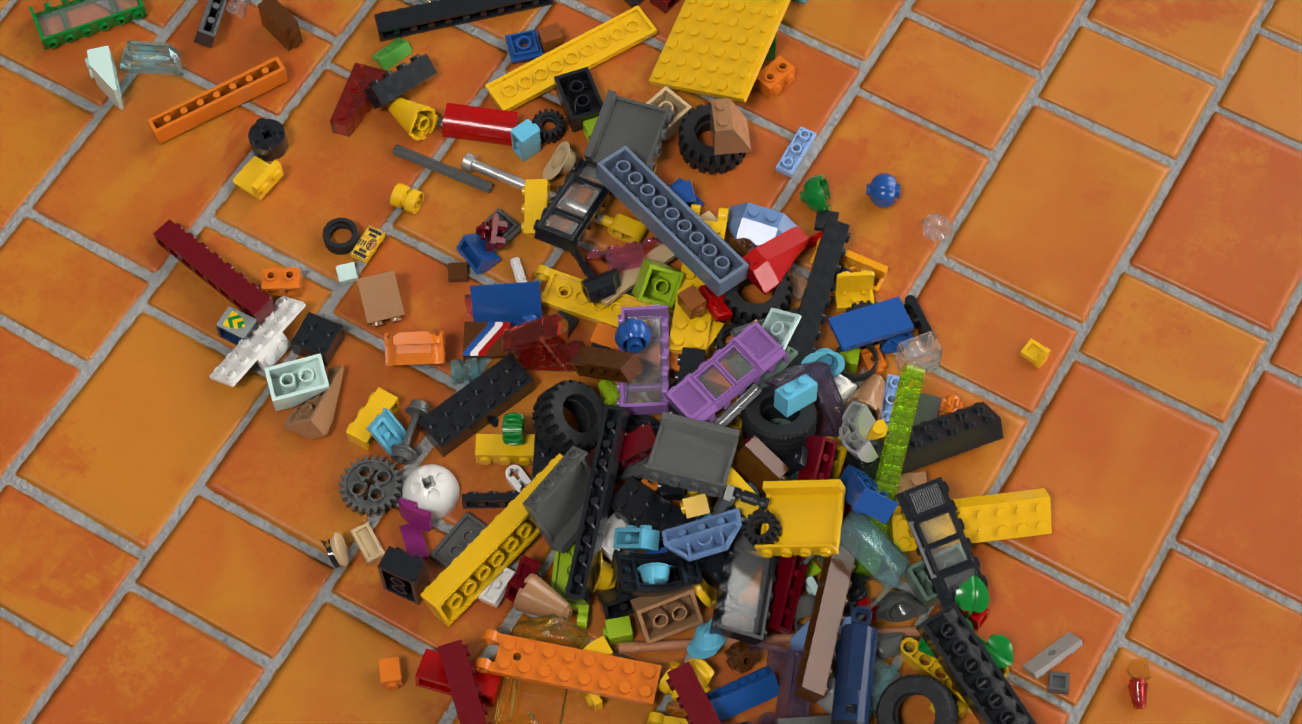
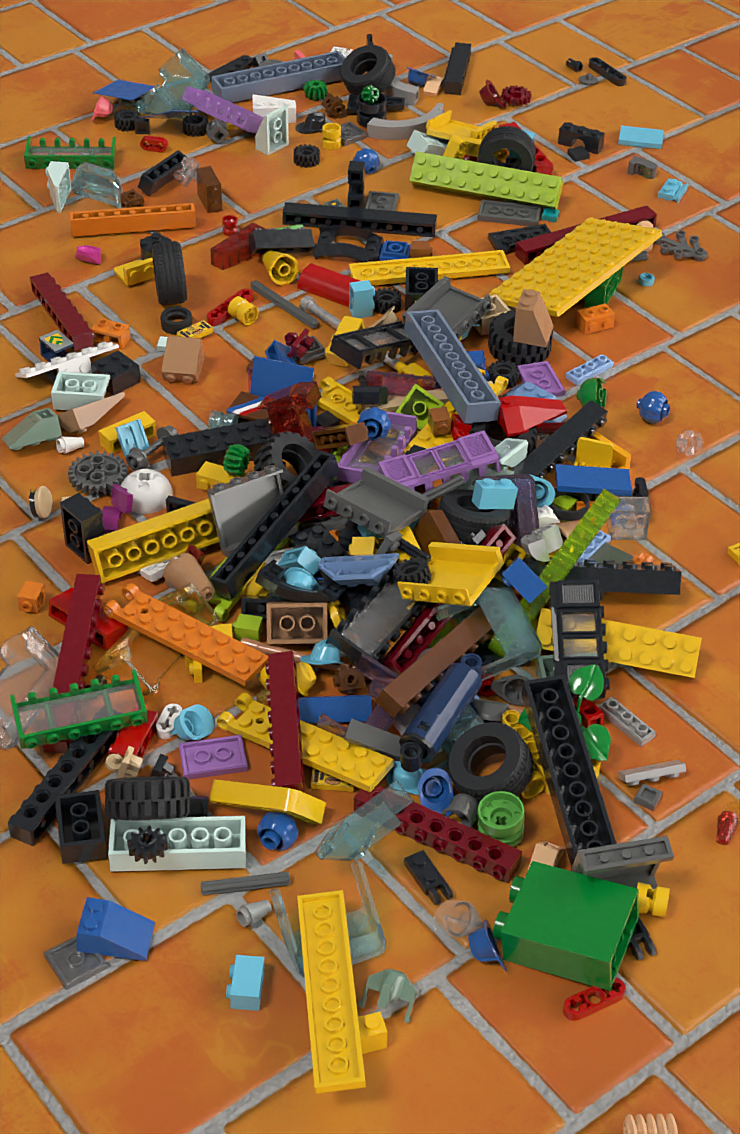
camera: 20 degrees right, 20 degrees down
(194, 168) = (89, 254): none -> dark pink piece
(201, 70) = (131, 199): none -> reddish brown brick
(276, 456) = (33, 429): none -> sand green slope
(310, 182) = (169, 273): none -> black tyre
(319, 457) = (68, 444): none -> white cone
(327, 68) = (229, 223): none -> red wheel
(386, 193) = (218, 315): none -> red beam
(415, 348) = (189, 392): orange piece -> none
(443, 58) = (327, 246): none -> black wedge
(714, 202) = (505, 370): none -> black tyre
(753, 184) = (542, 376): none -> medium lavender tile
(1017, 608) = (627, 721): none -> light grey tile

